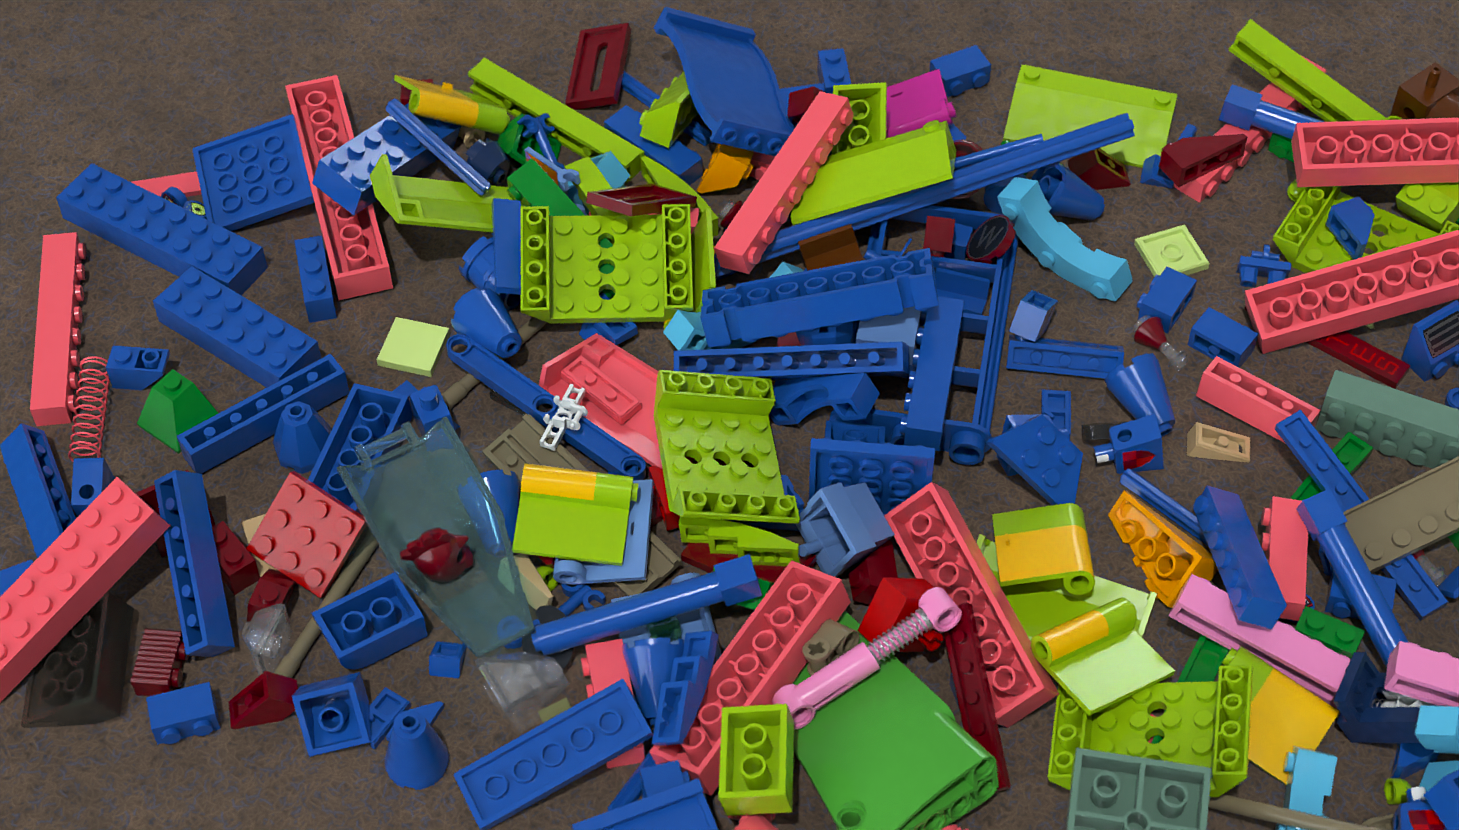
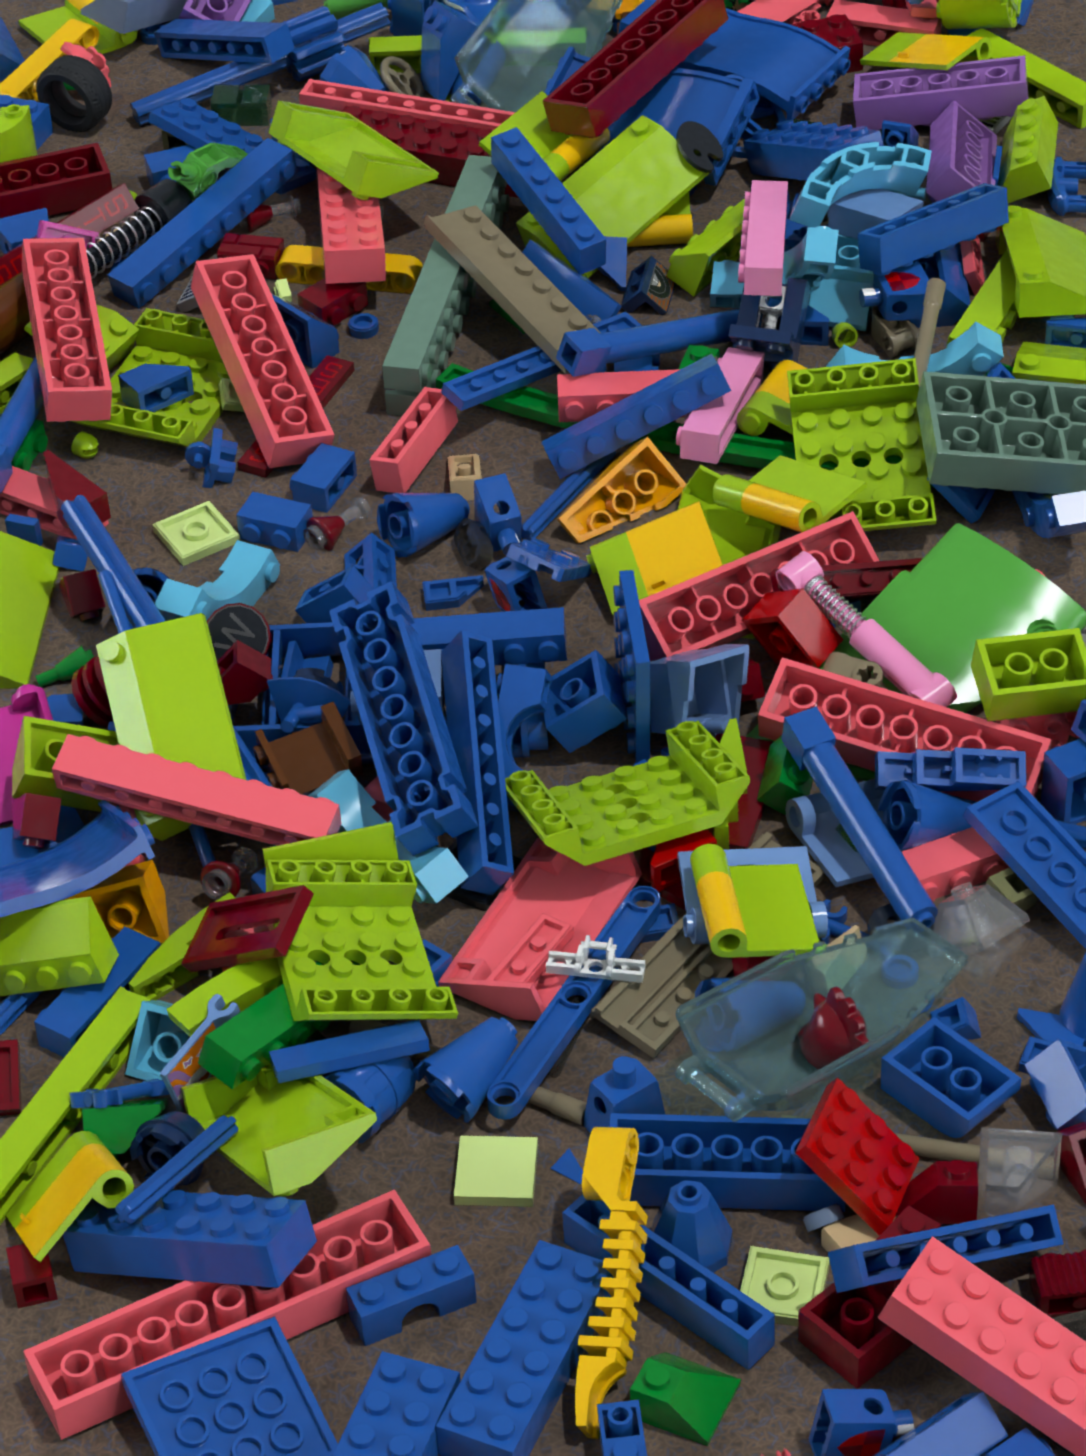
camera: 100 degrees left, 10 degrees down
(243, 490) = (784, 1281): none -> yellowish green tile
(323, 367) = (609, 1178): none -> yellow piece

